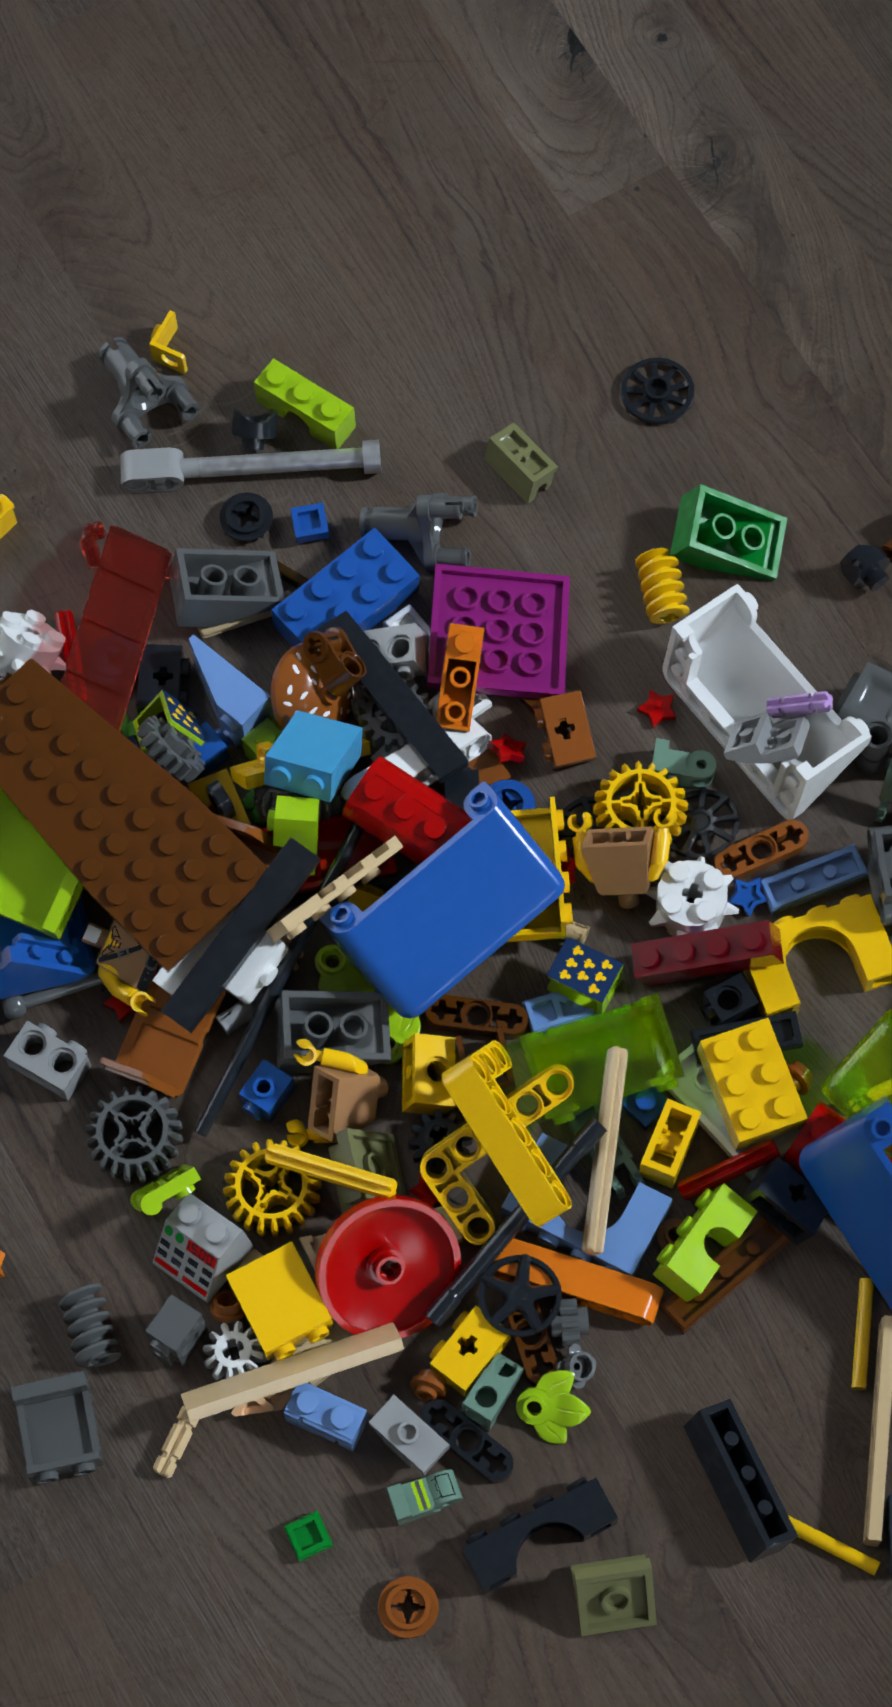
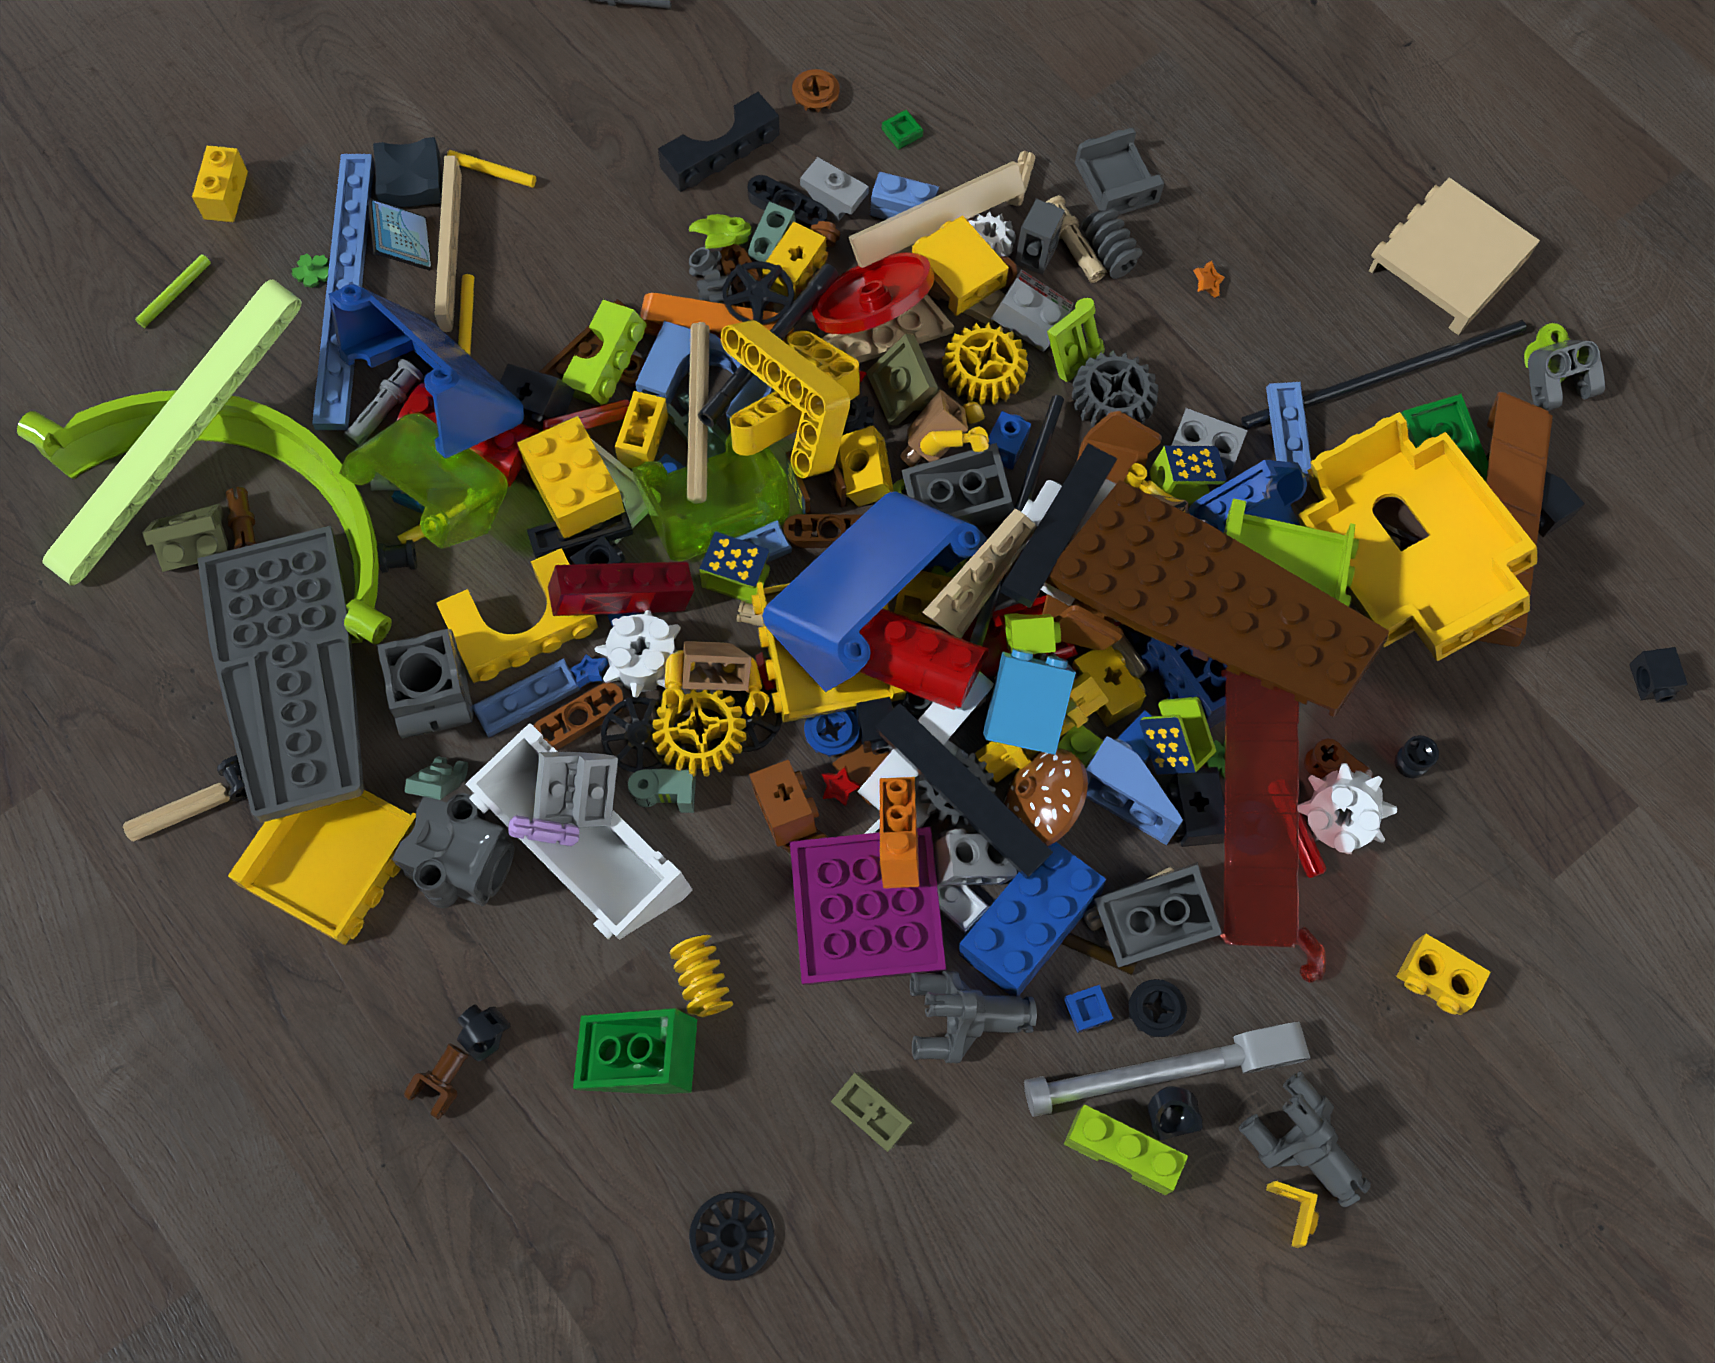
camera: 165 degrees right, 0 degrees up
(82, 1013) = (1187, 471): none -> piece
(137, 1358) = (1077, 244): none -> tan pin
(170, 748) = (1172, 693): dark grey gear -> none
(220, 799) = (1111, 673): black tile -> none
(330, 1171) = (935, 349): yellow axle -> none
(337, 662) = (1033, 813): reddish brown piece -> none
(424, 1496) = (828, 149): sand green leg -> none
(614, 1594) = (658, 113): olive bracket -> none
(657, 708) = (693, 854): red piece -> none
(740, 1481) = (561, 188): black brick -> none
(801, 1077) = (533, 507): dark orange plate -> none

